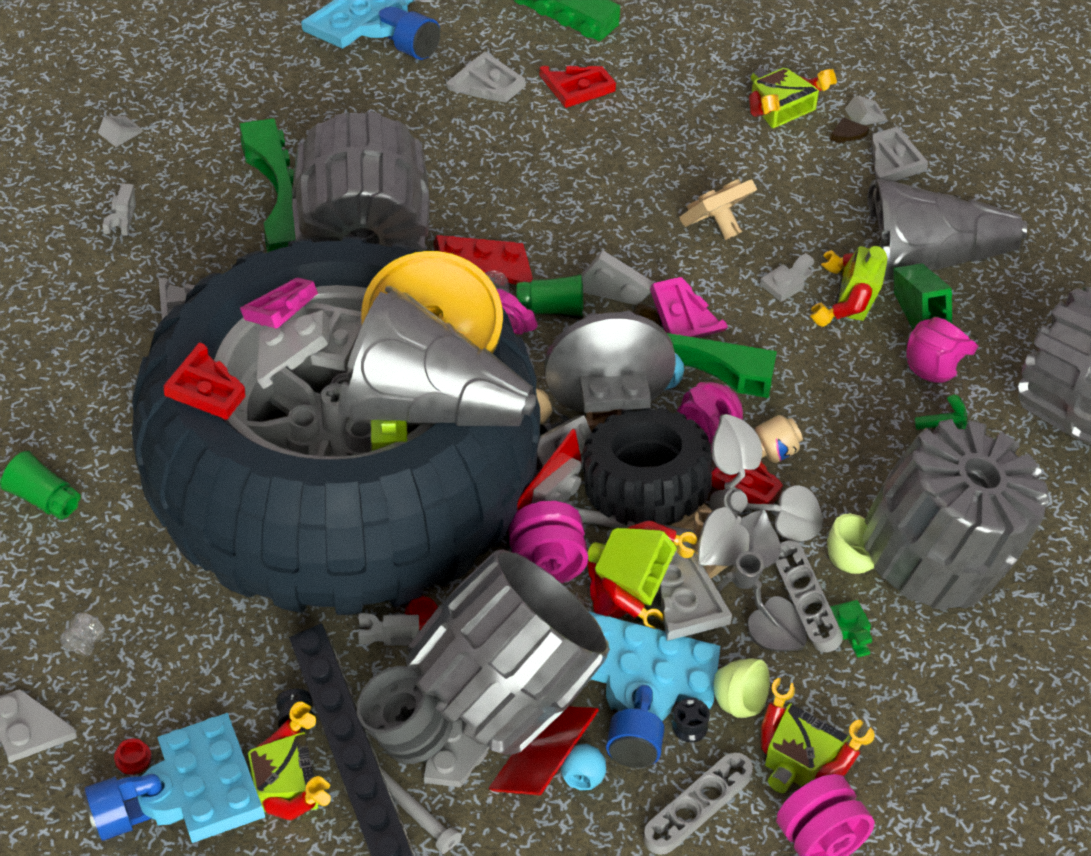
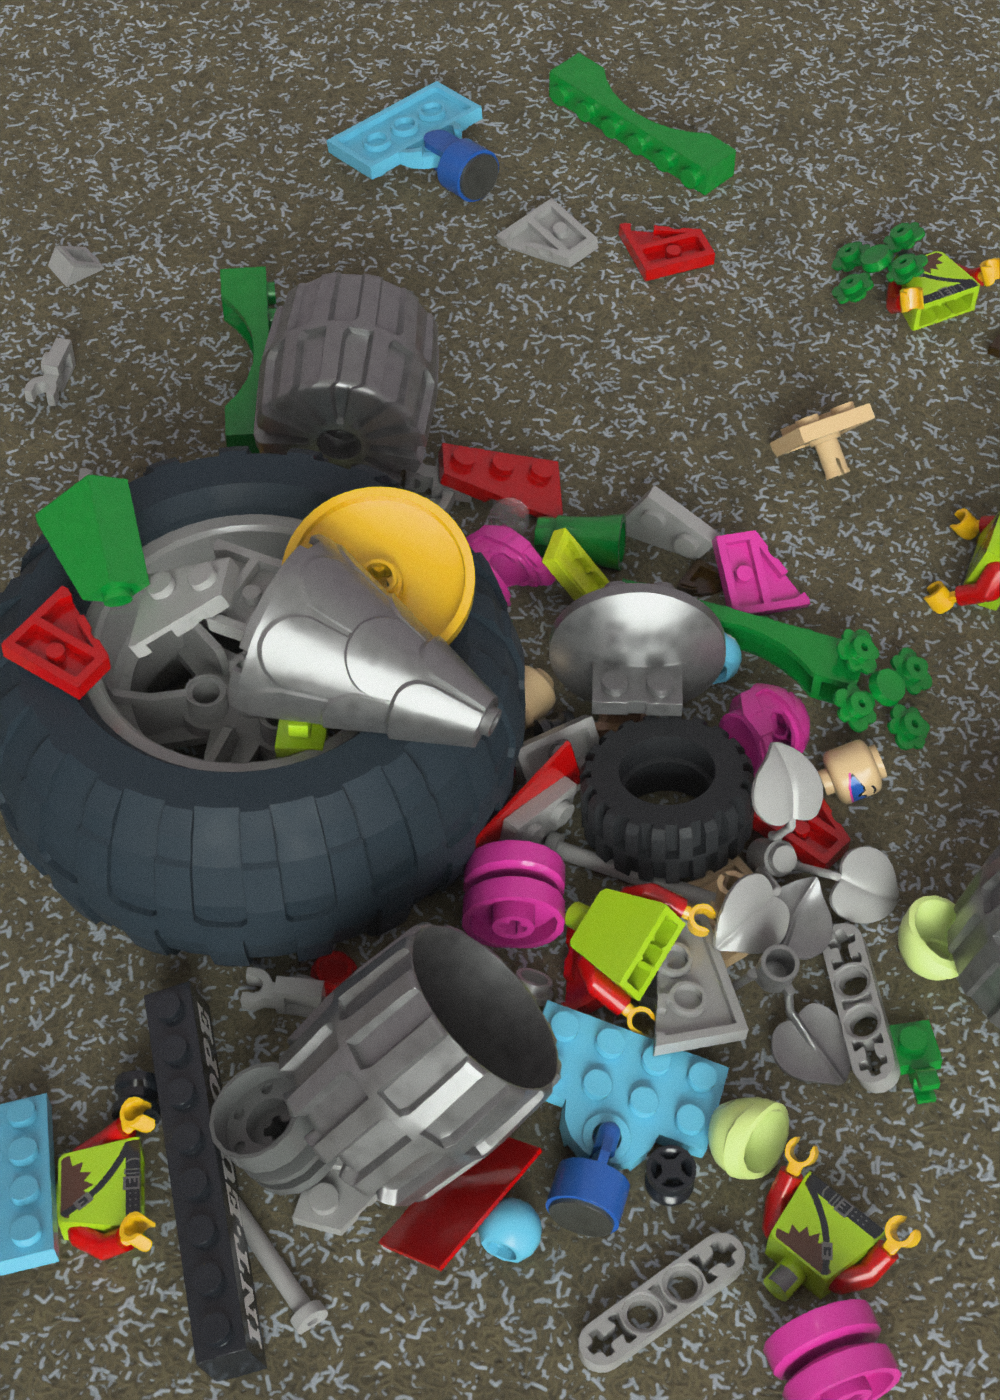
camera: 10 degrees right, 5 degrees up
(220, 307) = (97, 539): none -> green slope
(280, 304) = (184, 538): dark pink wing -> none
(548, 313) = (572, 565): none -> neon yellow plate
(738, 77) = (877, 258): none -> green plant
(786, 282) = (901, 546): light grey plate -> none
(793, 377) = (885, 686): none -> green plant

